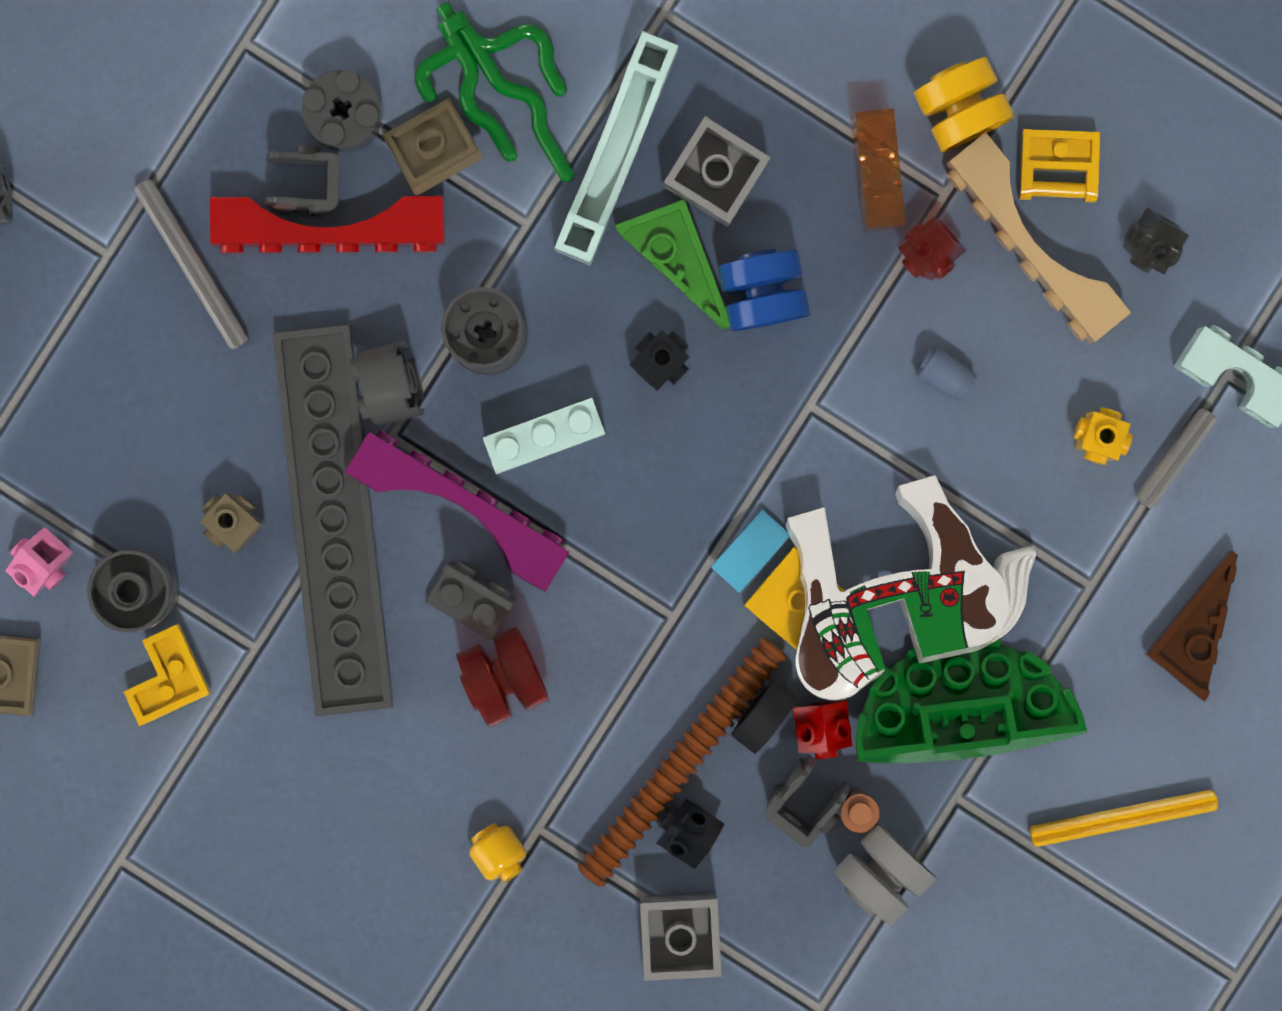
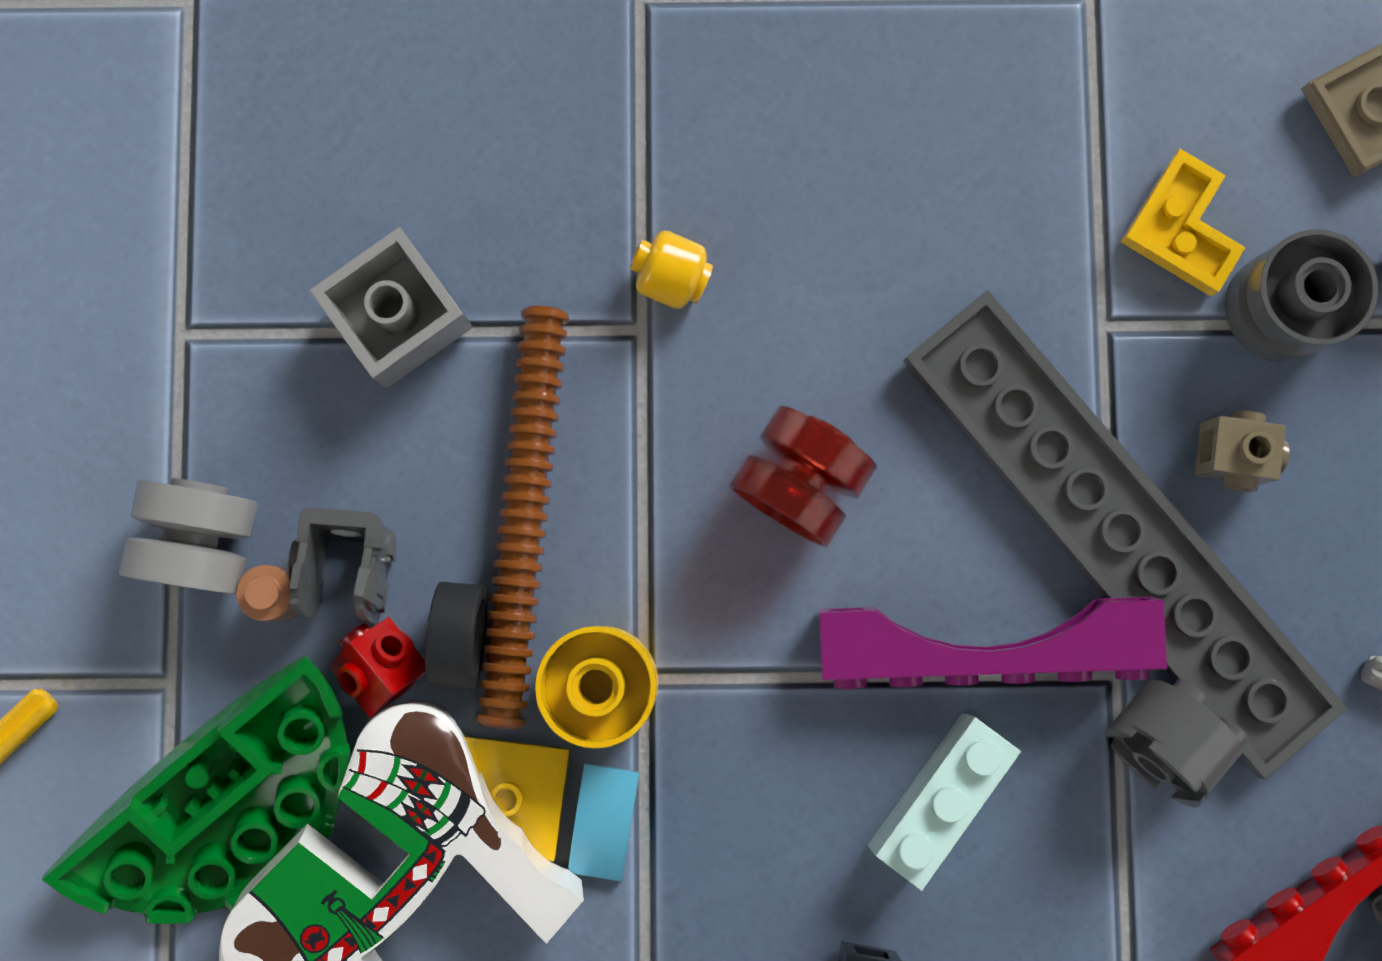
camera: 145 degrees right, 5 degrees down
(470, 599) = (896, 542): dark grey bracket -> none
(475, 311) = (1130, 899): dark grey wheel -> none
(689, 833) = (459, 436): black brick -> none
(701, 633) = (596, 686): none -> yellow wheel

